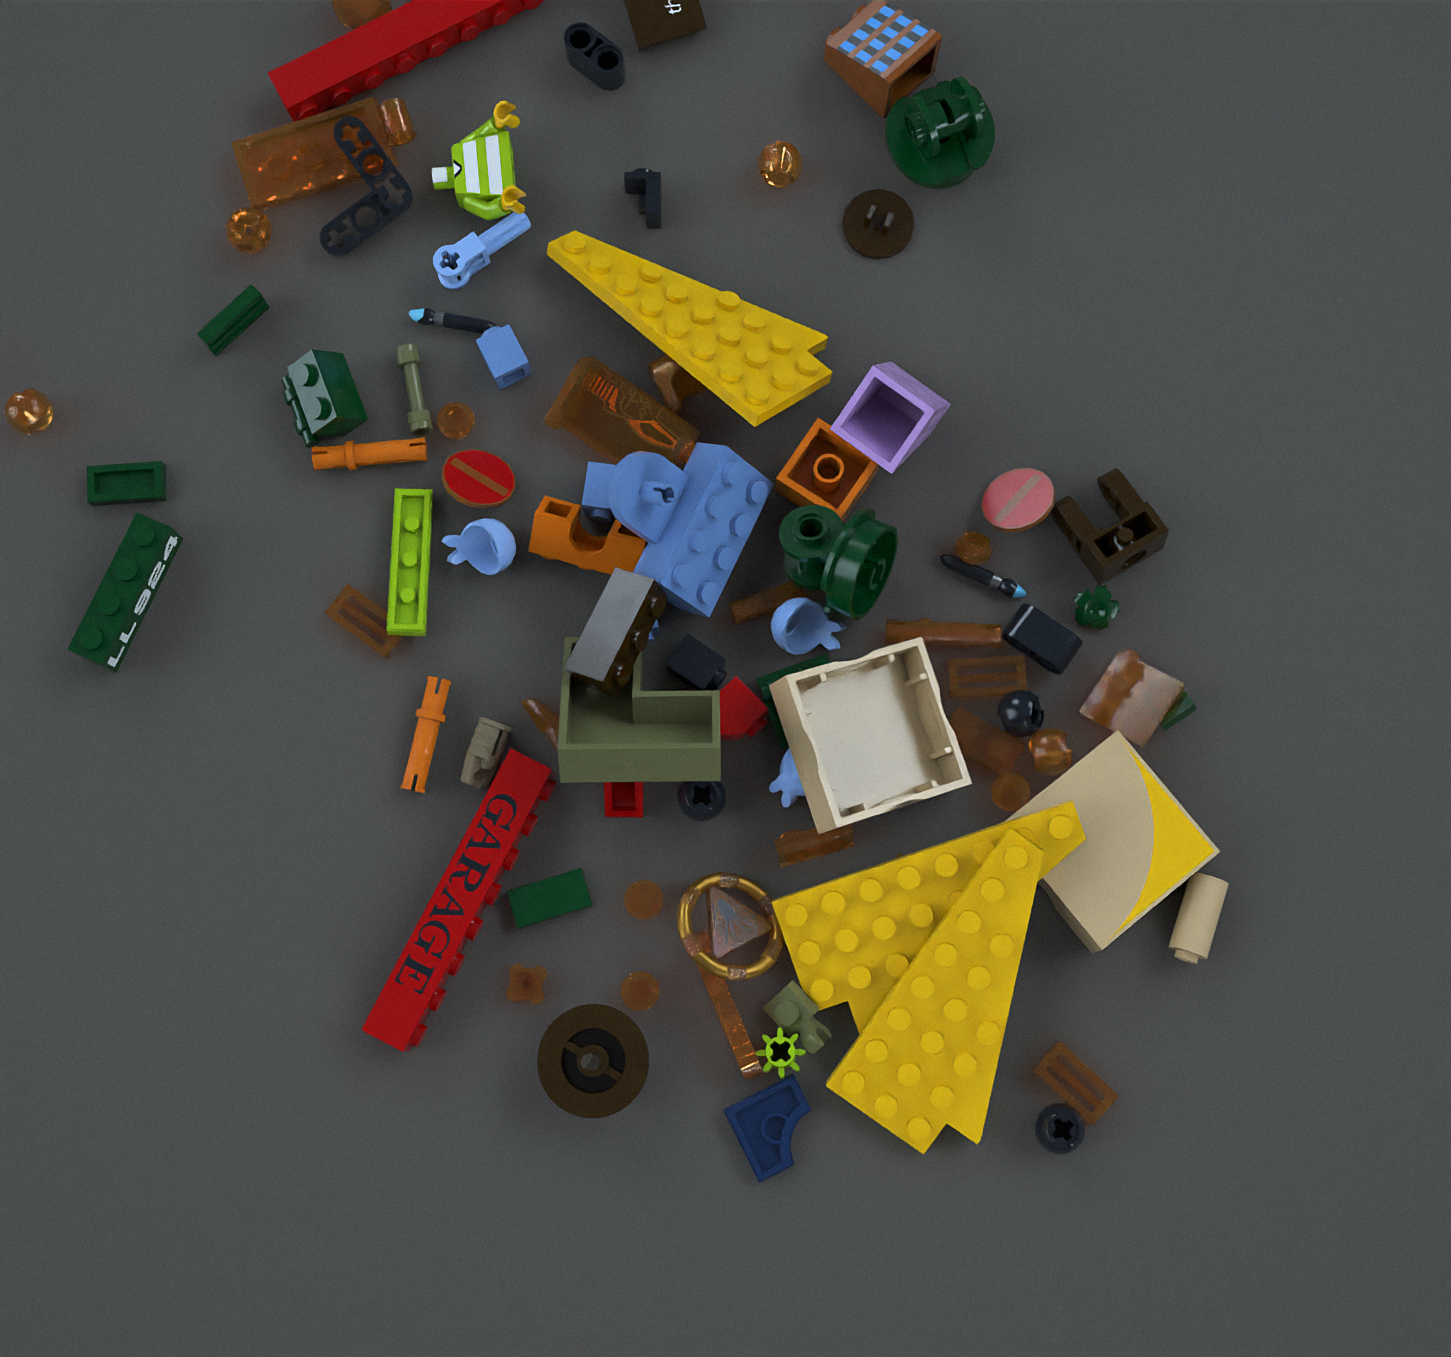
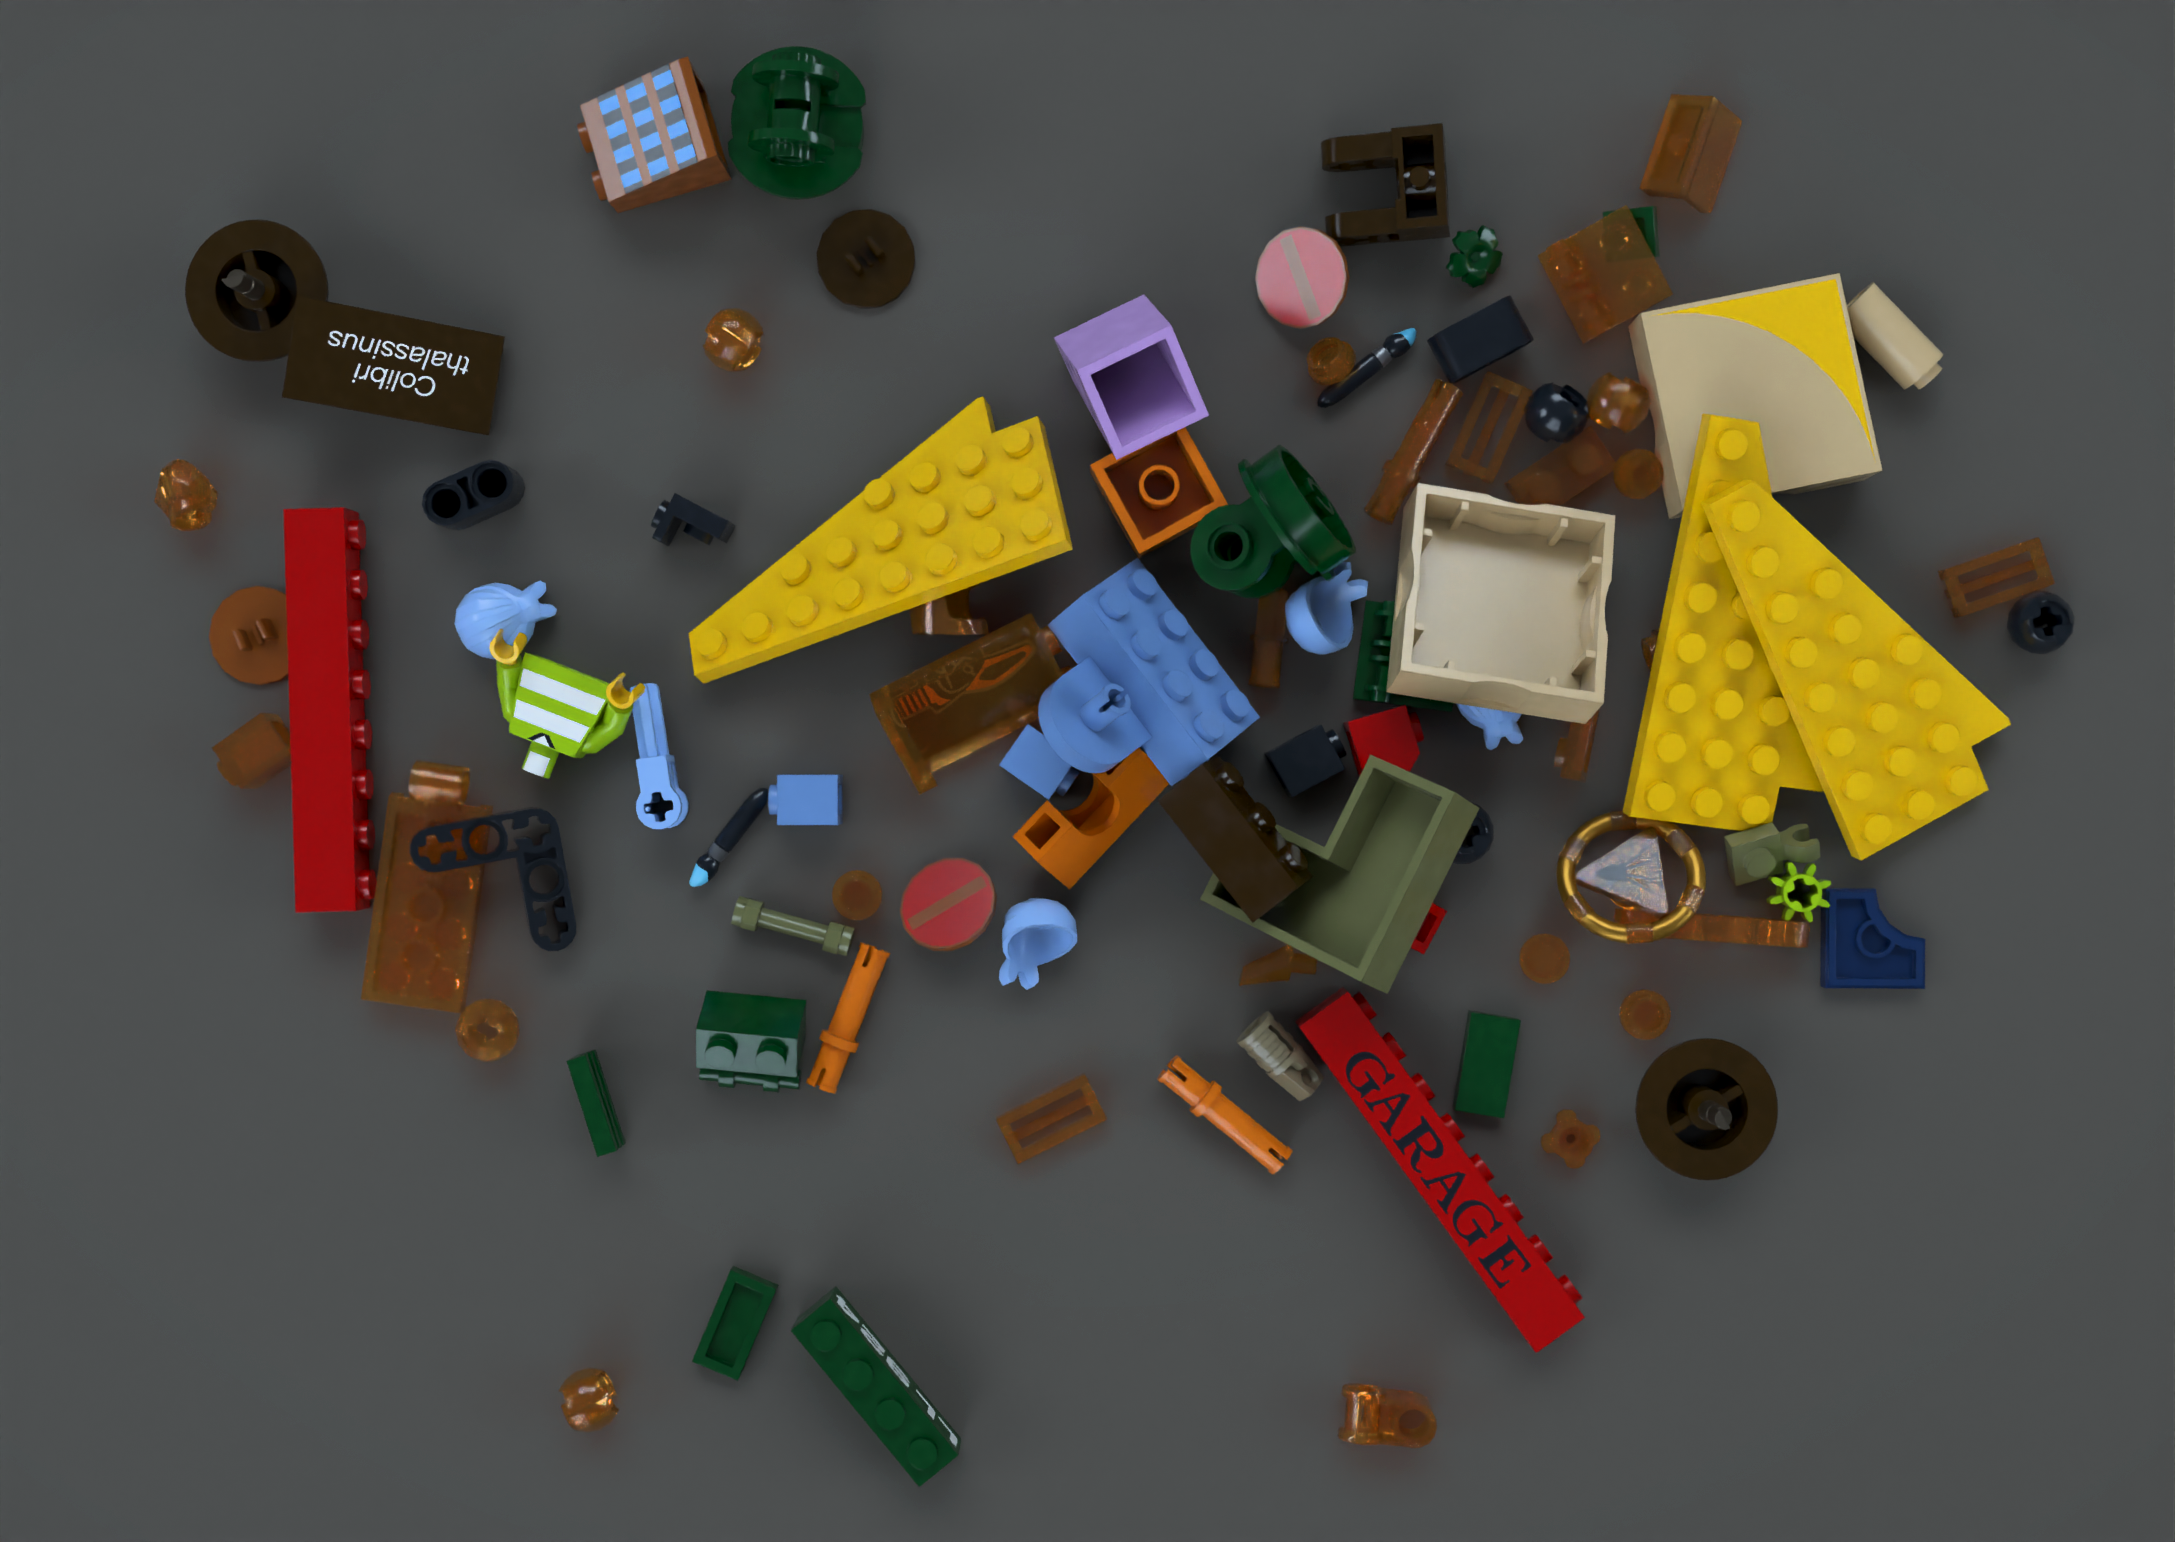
camera: 65 degrees left, 10 degrees up
(263, 944) = (1382, 1417): none -> clear orange piece
(410, 562) = (1007, 1033): lime tile -> none
(530, 108) = (496, 608): none -> light blue piece
(1247, 718) = (1691, 151): none -> clear orange panel

